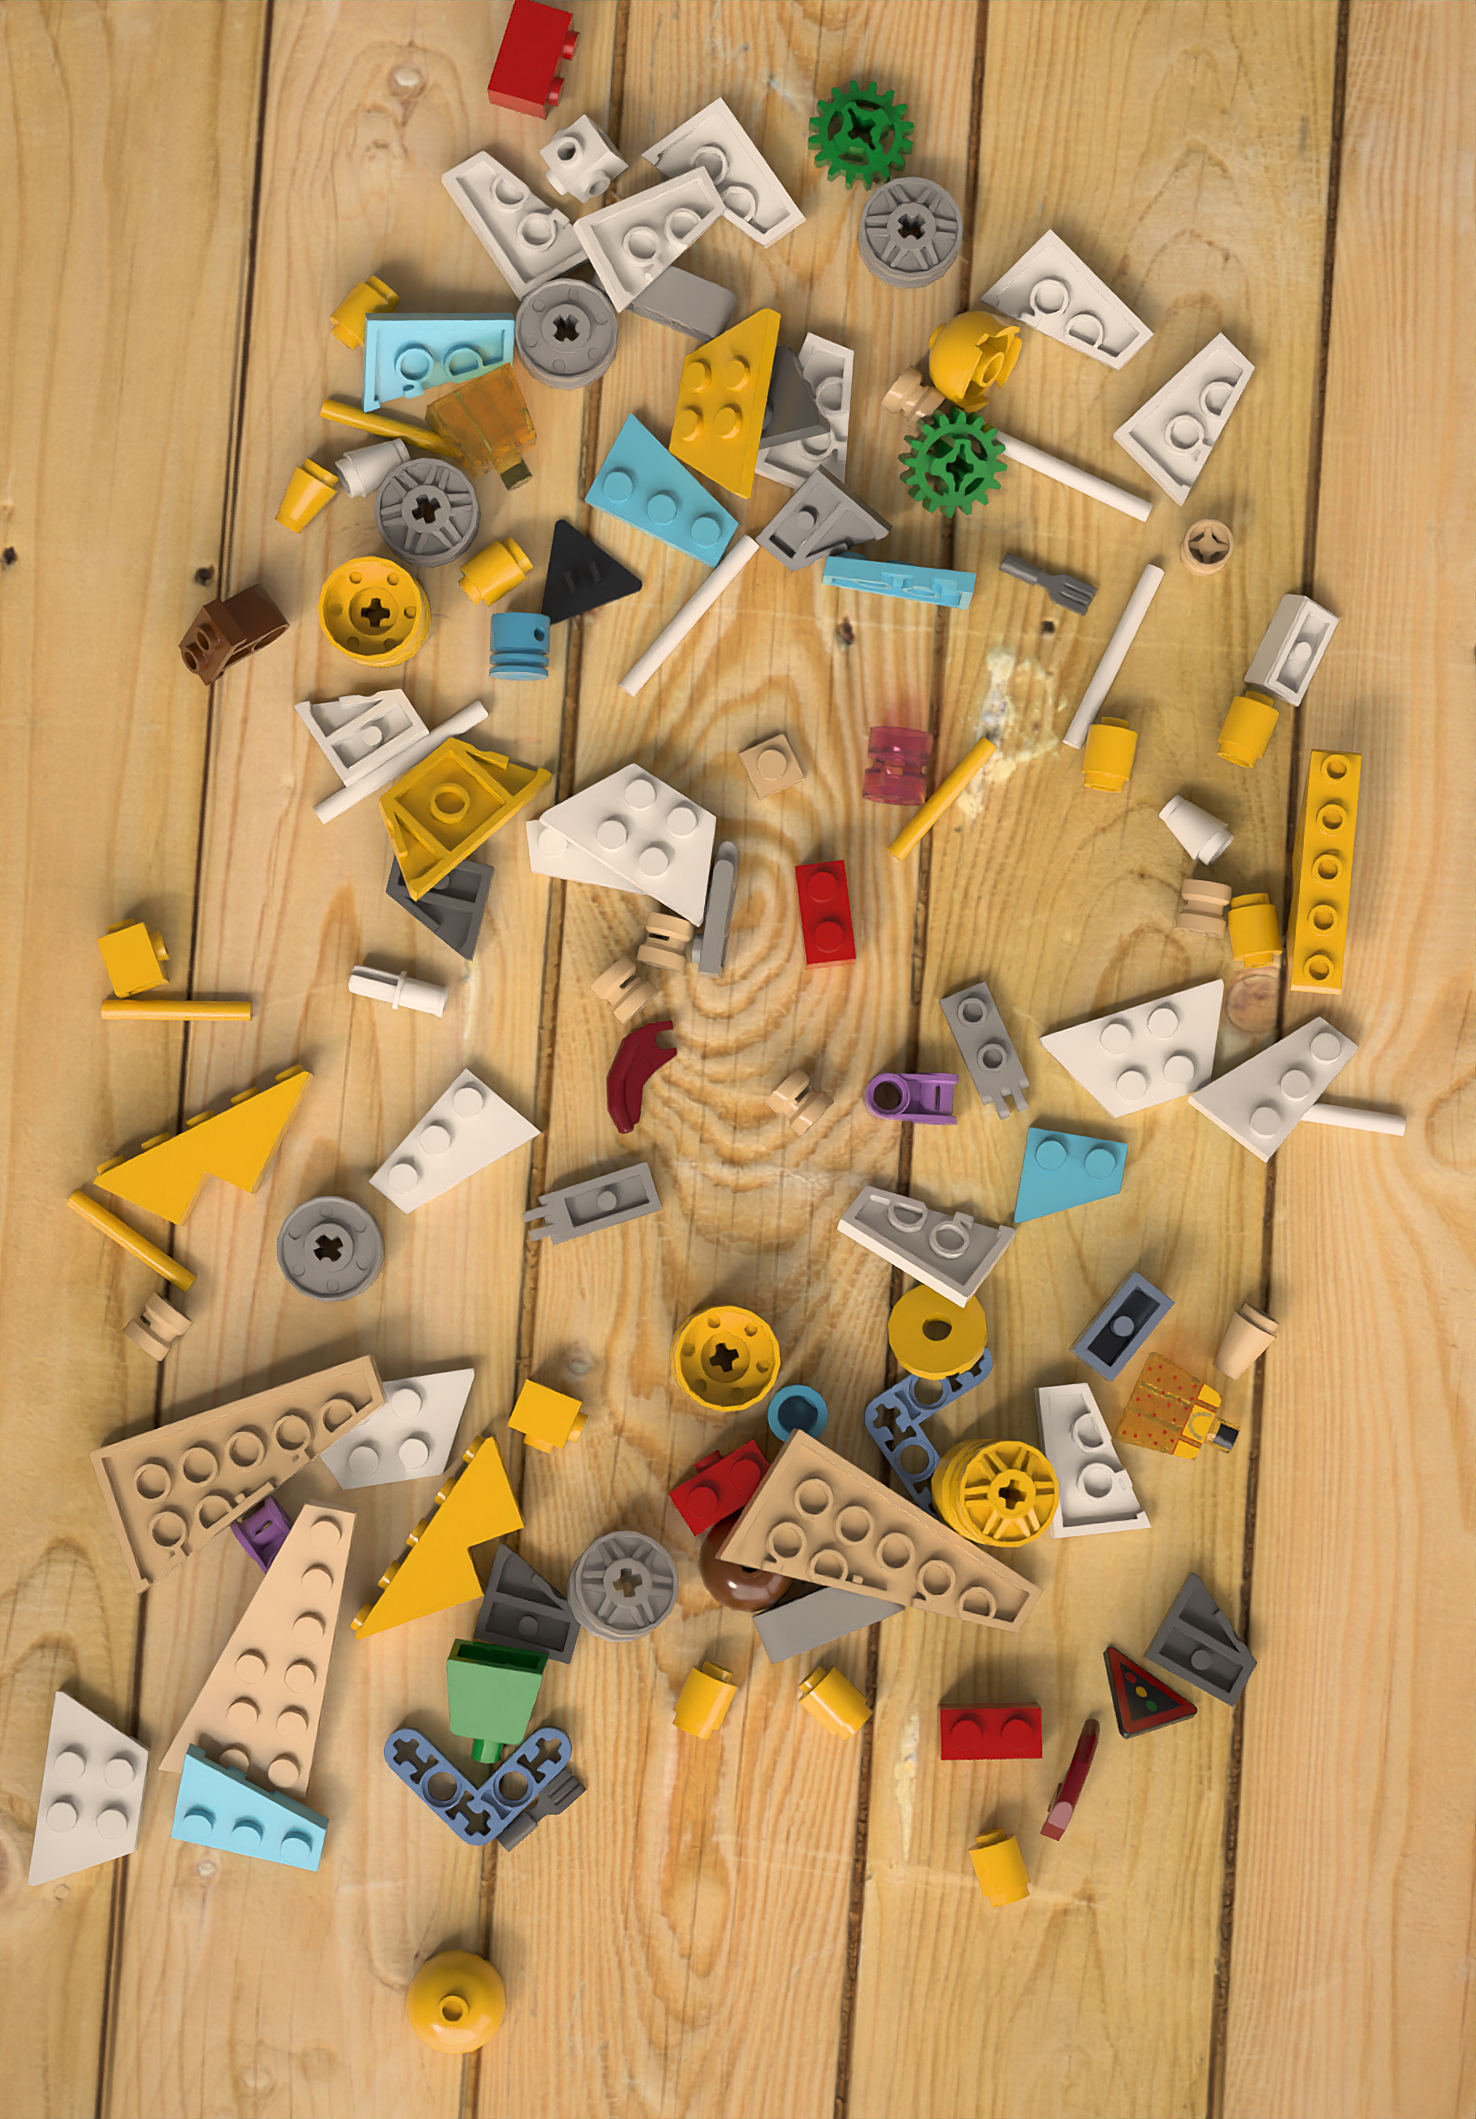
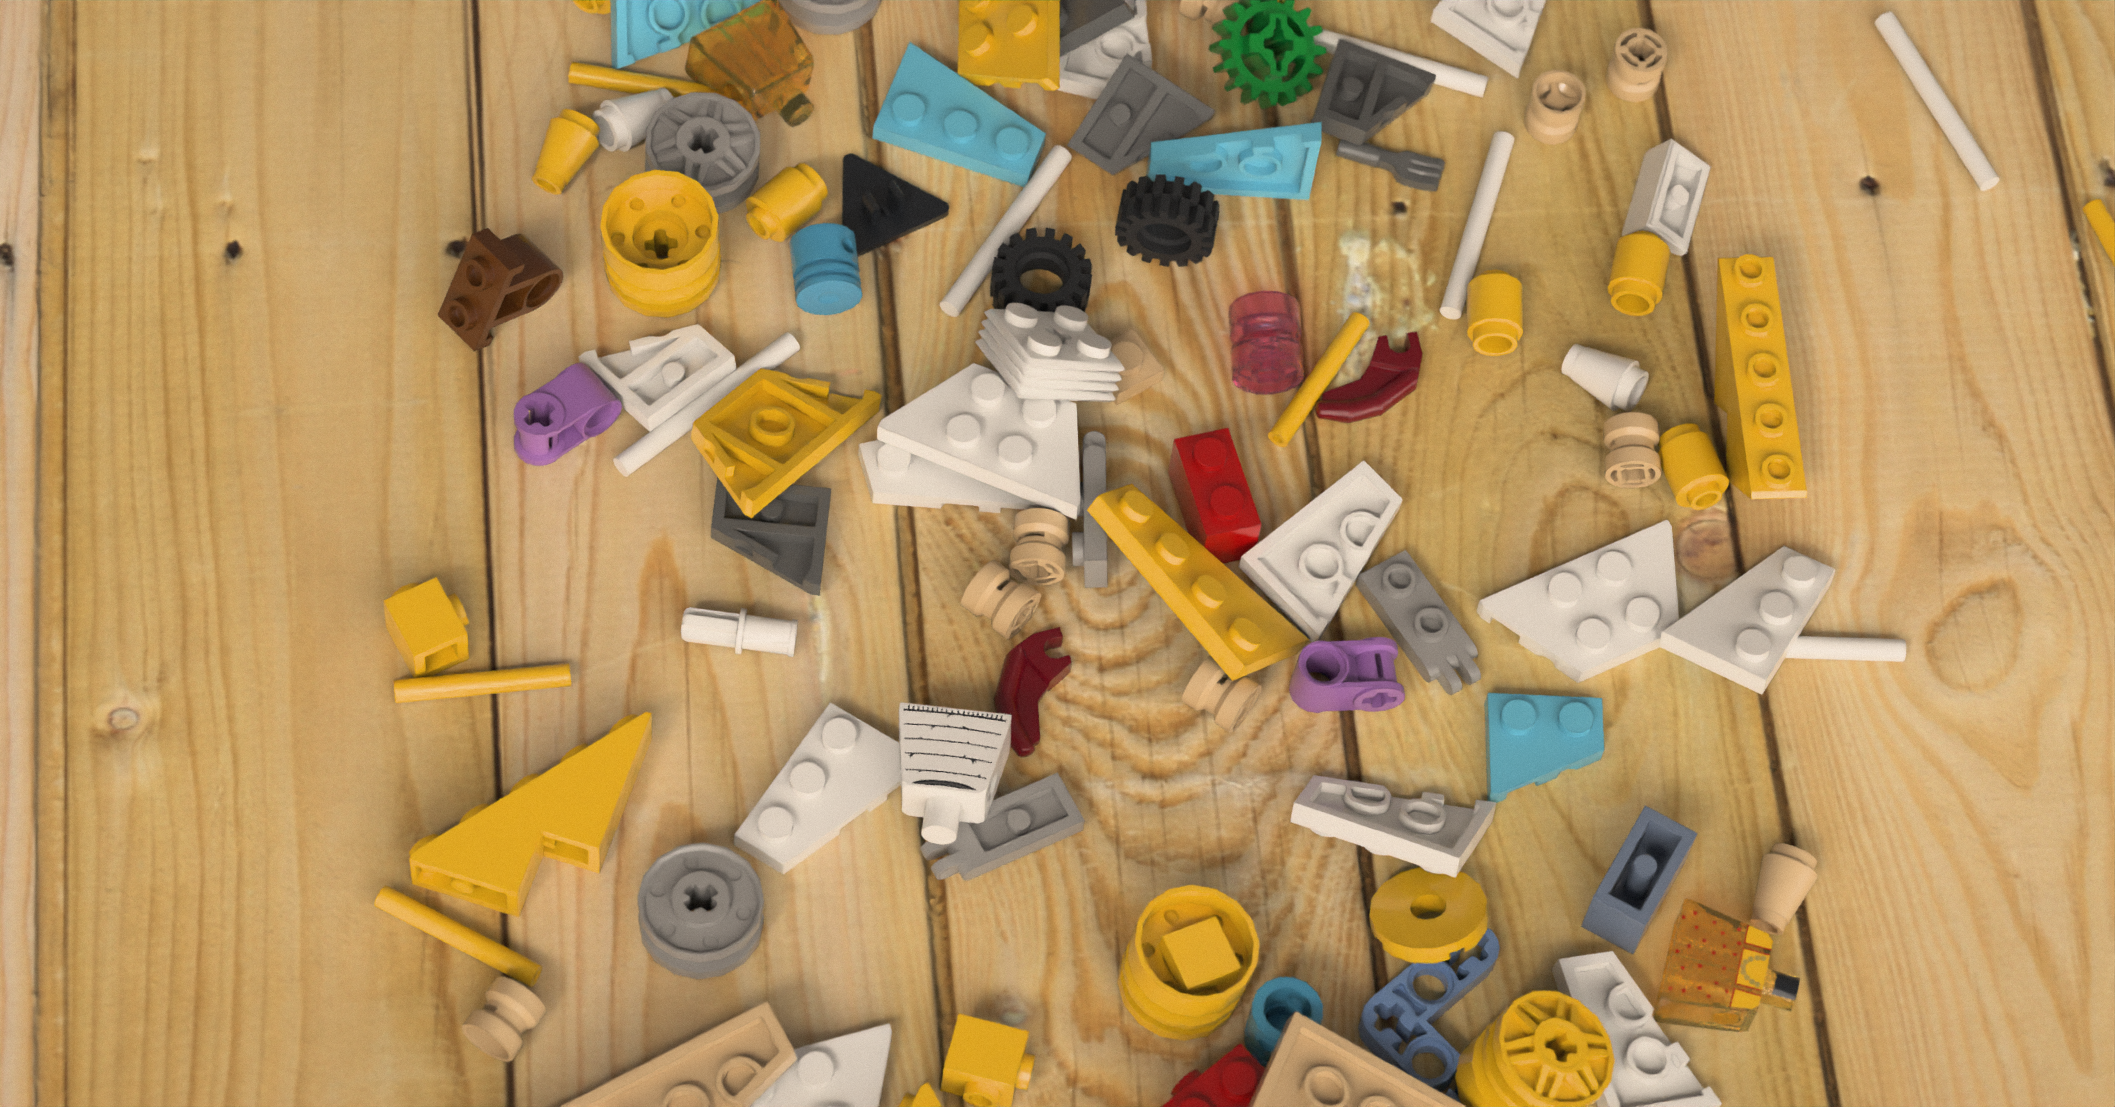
camera: 15 degrees left, 25 degrees down
(279, 759) = (563, 415): none -> medium lavender piece
(551, 1155) = (950, 765): none -> white torso
(700, 766) = (1050, 354): none -> white brick
(704, 646) = (1041, 254): none -> black tyre
(730, 1364) = (1199, 956): none -> yellow tile
(796, 1012) = (1204, 594): none -> yellow wing
(828, 636) = (1167, 220): none -> black tyre
(913, 971) = (1323, 549): none -> white wing
(995, 813) = (1382, 386): none -> dark red piece
(1035, 513) = (1367, 92): none -> dark grey wing
(1288, 520) = (1636, 64): none -> tan wheel

